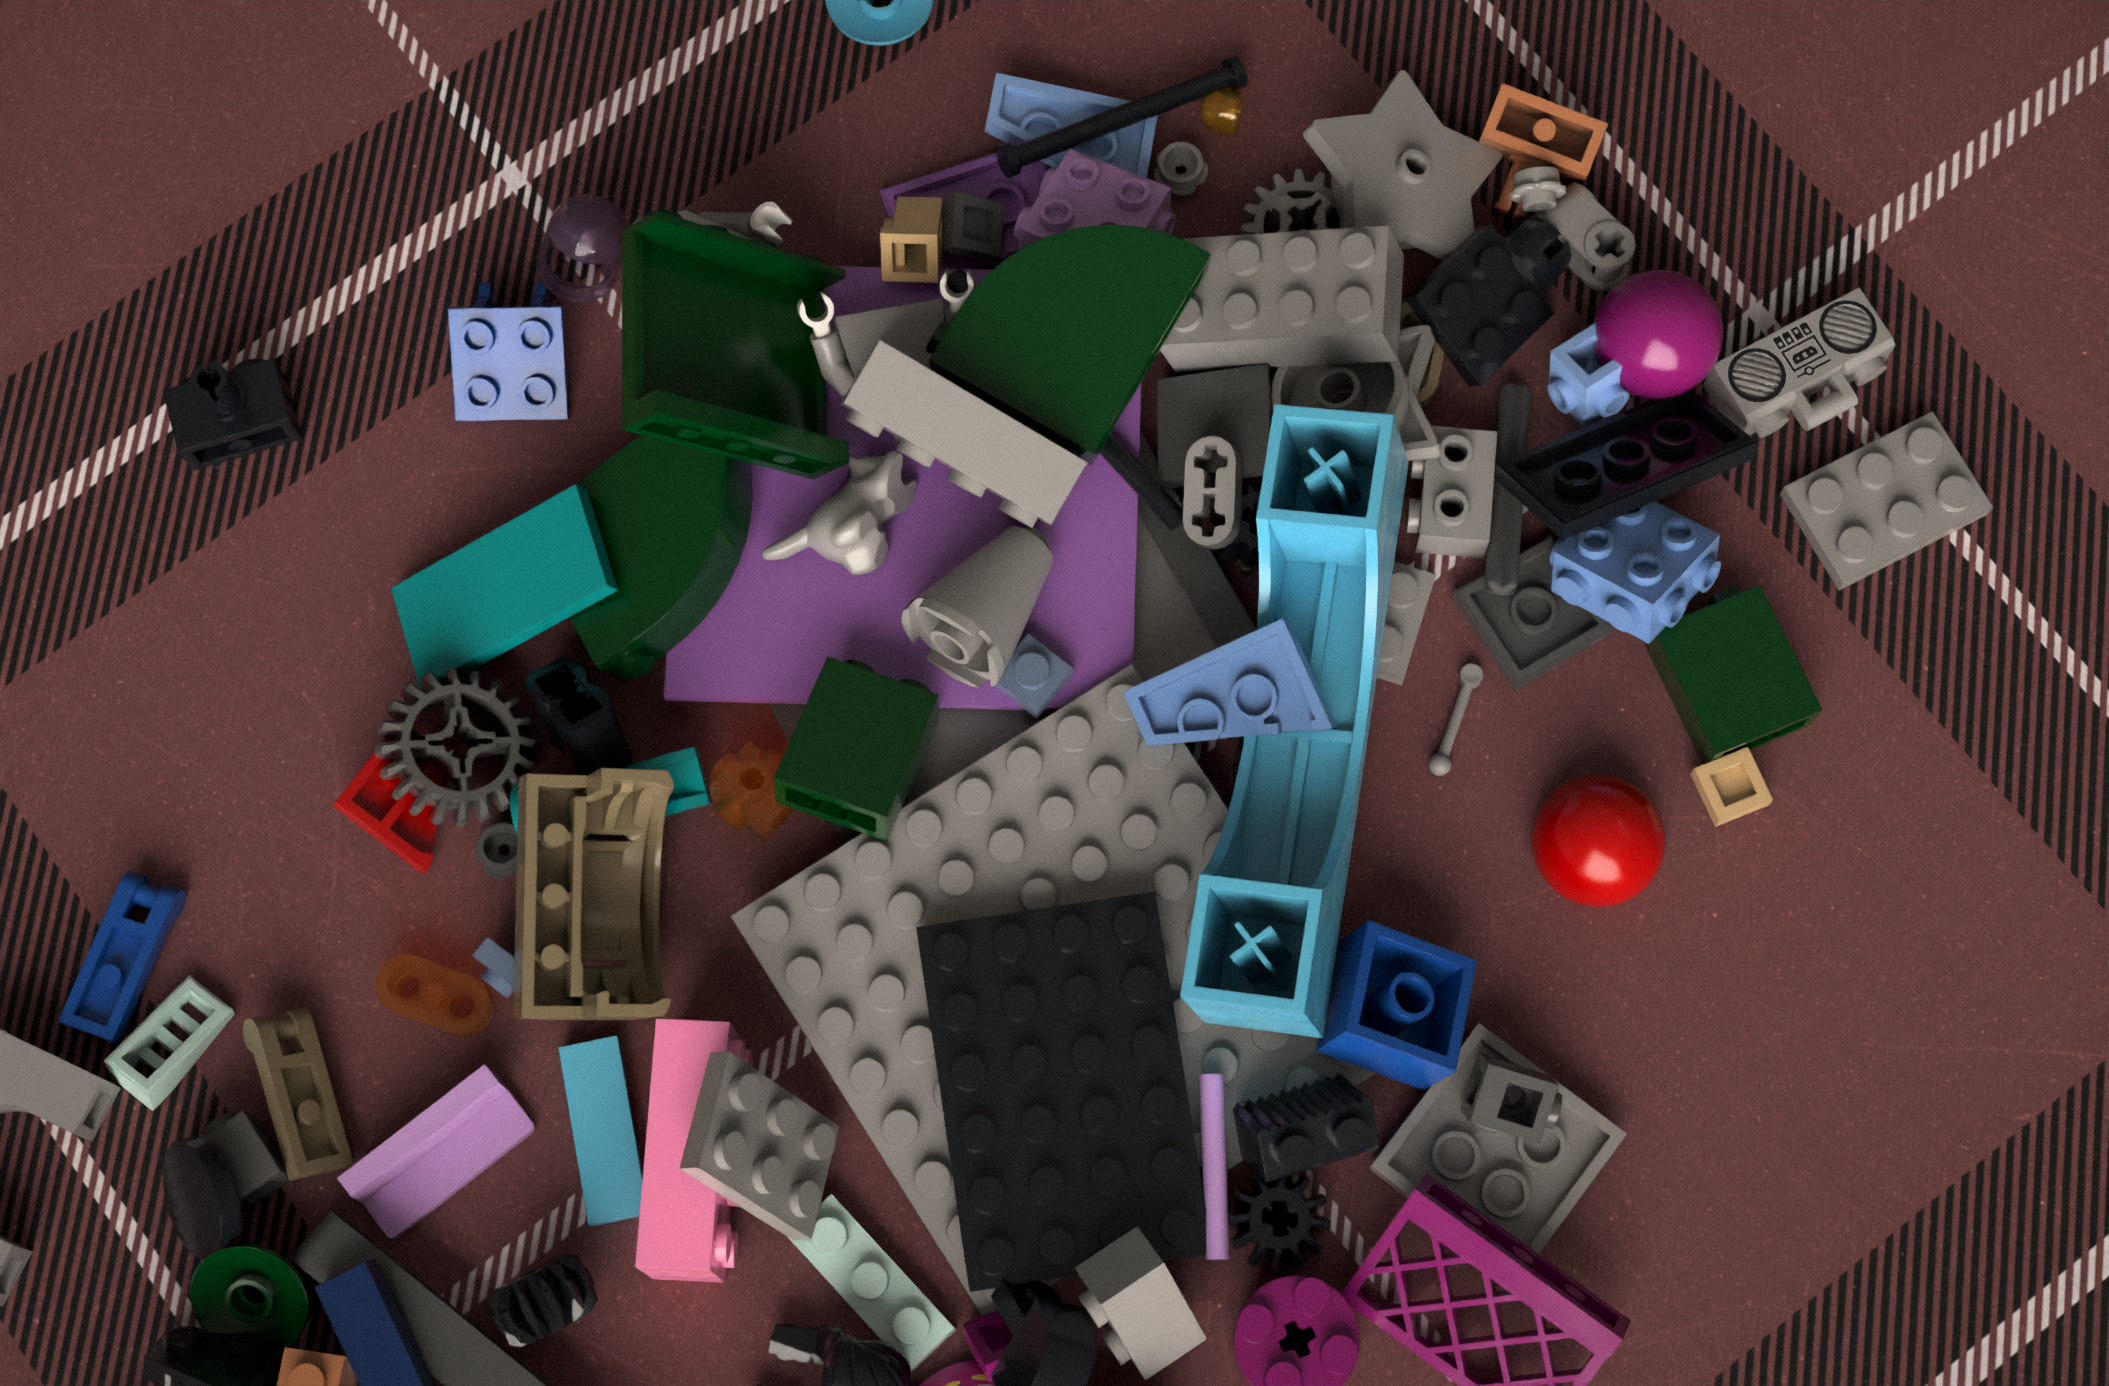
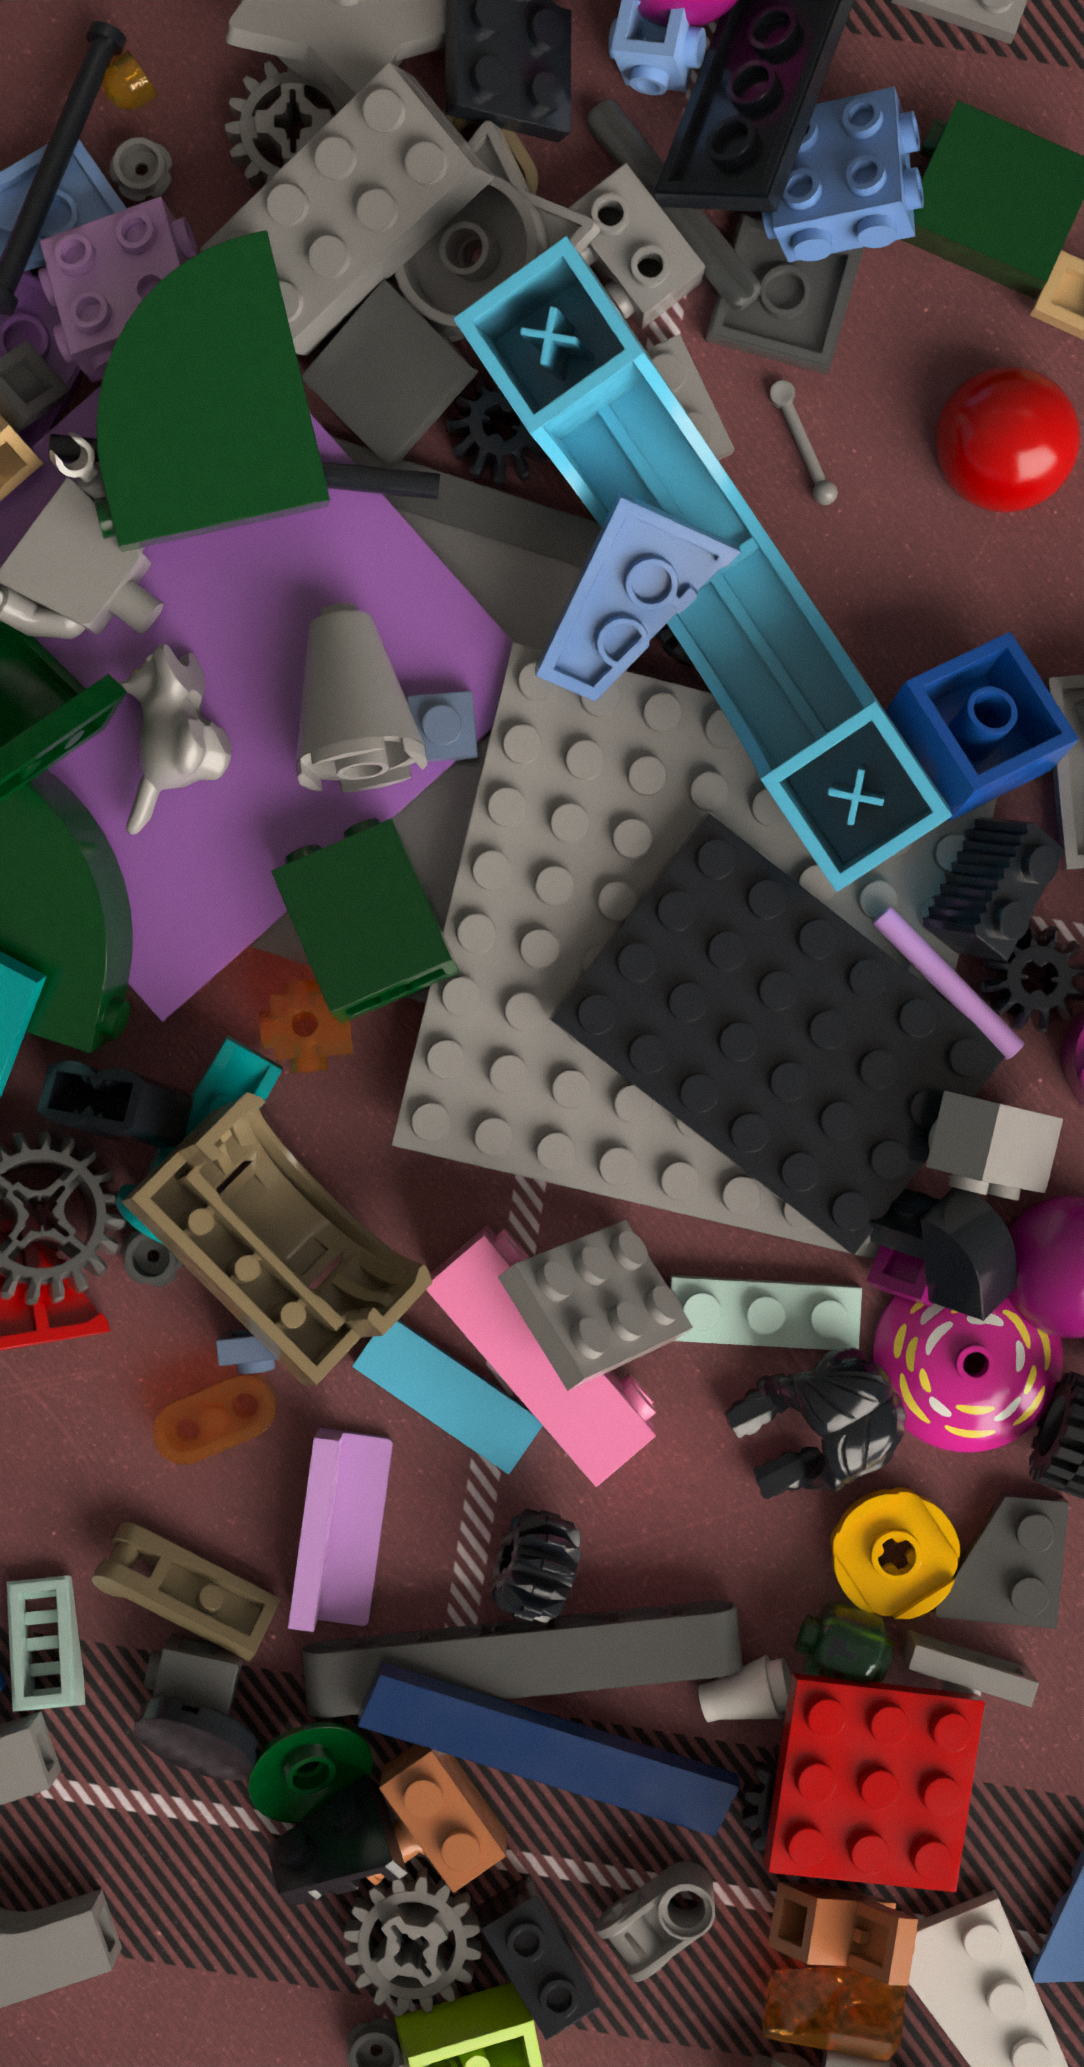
camera: 40 degrees left, 15 degrees up
(963, 433) = (203, 584): light grey brick -> none
(1199, 492) = (434, 446): light grey beam -> none

